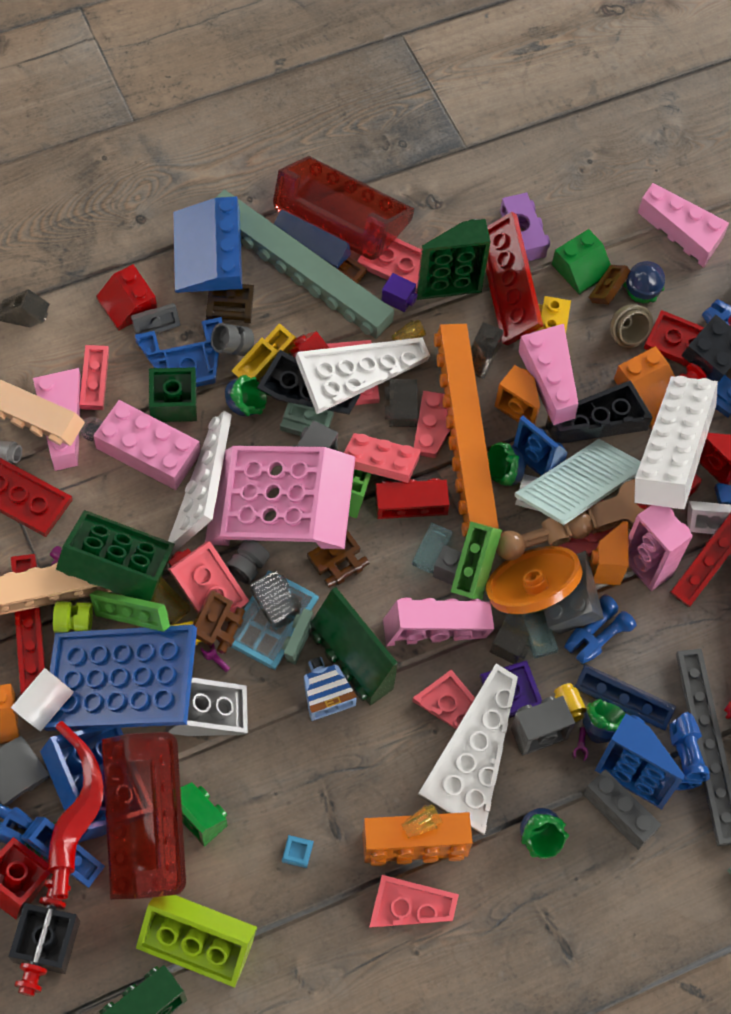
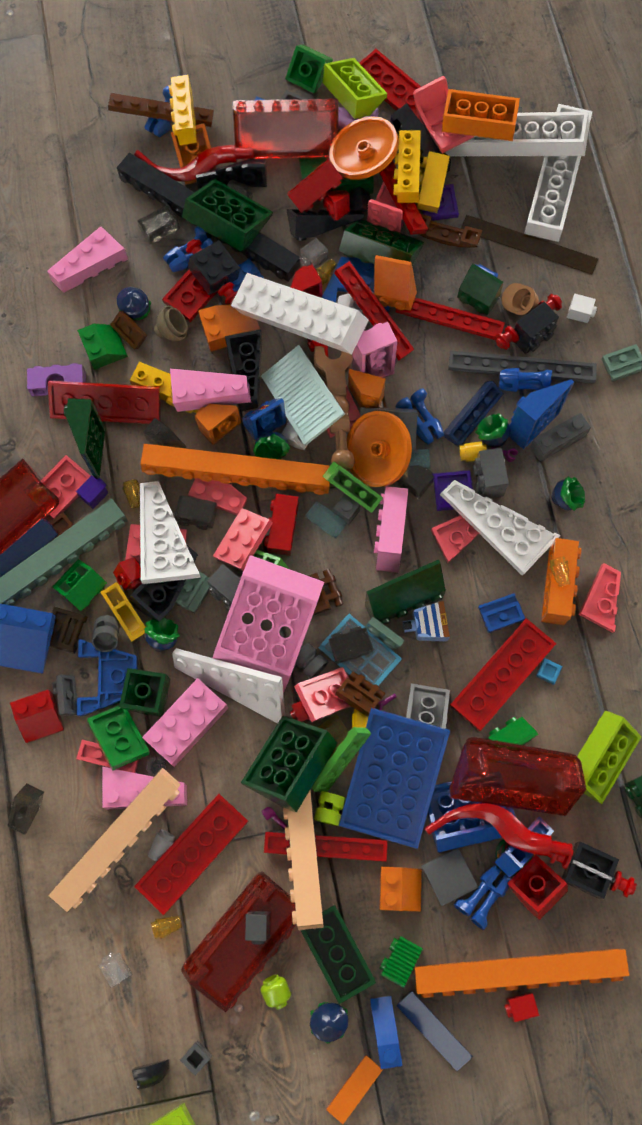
camera: 70 degrees left, 10 degrees up
(42, 699) = (399, 842): white brick -> none
(115, 378) = (118, 737): none -> green plate
(280, 792) = (502, 674): none -> red plate
(284, 305) = (80, 585): none -> green slope
(360, 776) = (501, 613): none -> blue plate

